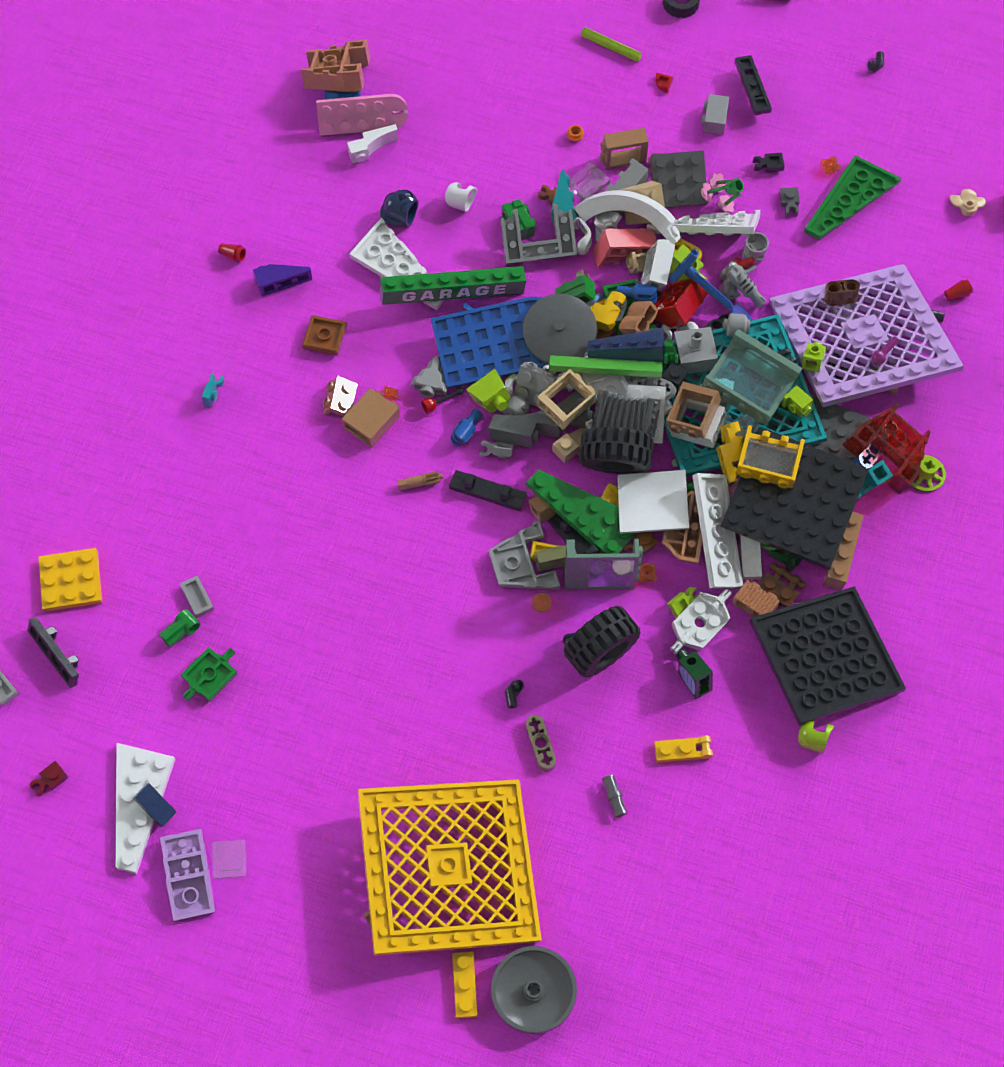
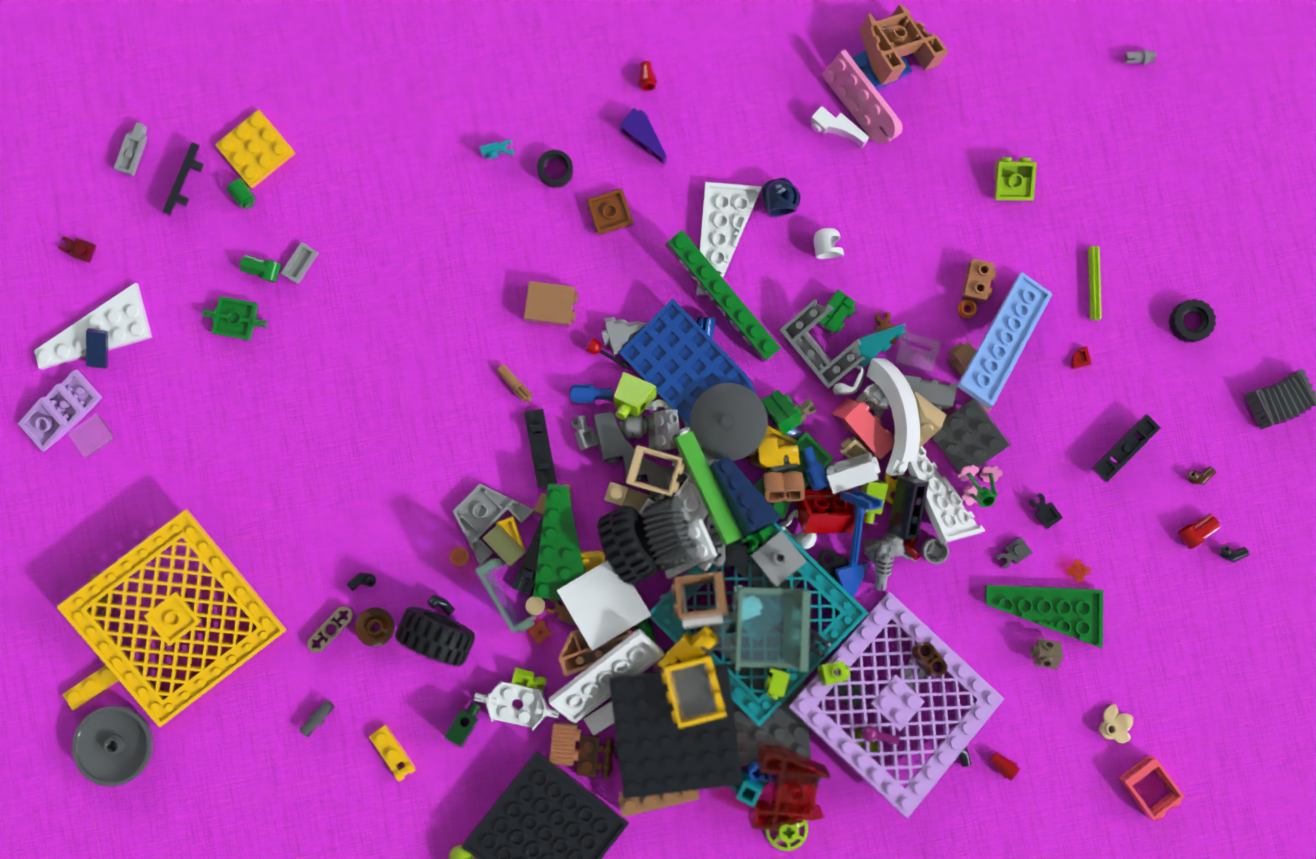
camera: 60 degrees right, 20 degrees up
(103, 609) = (241, 194): none -> green brick
(259, 368) = (552, 154): none -> black tyre
(339, 396) = (555, 264): bracket -> none
(390, 392) = (584, 305): clear orange plate -> none
(495, 51) = (1015, 179): none -> lime plate
(558, 114) = (978, 280): none -> nougat brick
(561, 693) = (365, 629): none -> reddish brown dish
(619, 112) = (1004, 340): none -> light blue plate
(709, 244) = (908, 507): none -> black brick
(716, 114) = (1070, 430): light grey brick -> none
(734, 322) = (828, 582): light grey head -> none
(806, 52) = (1201, 478): none -> reddish brown arm
(846, 77) = (1195, 533): none -> red piece
(884, 215) = (1047, 653): none -> dark tan brick

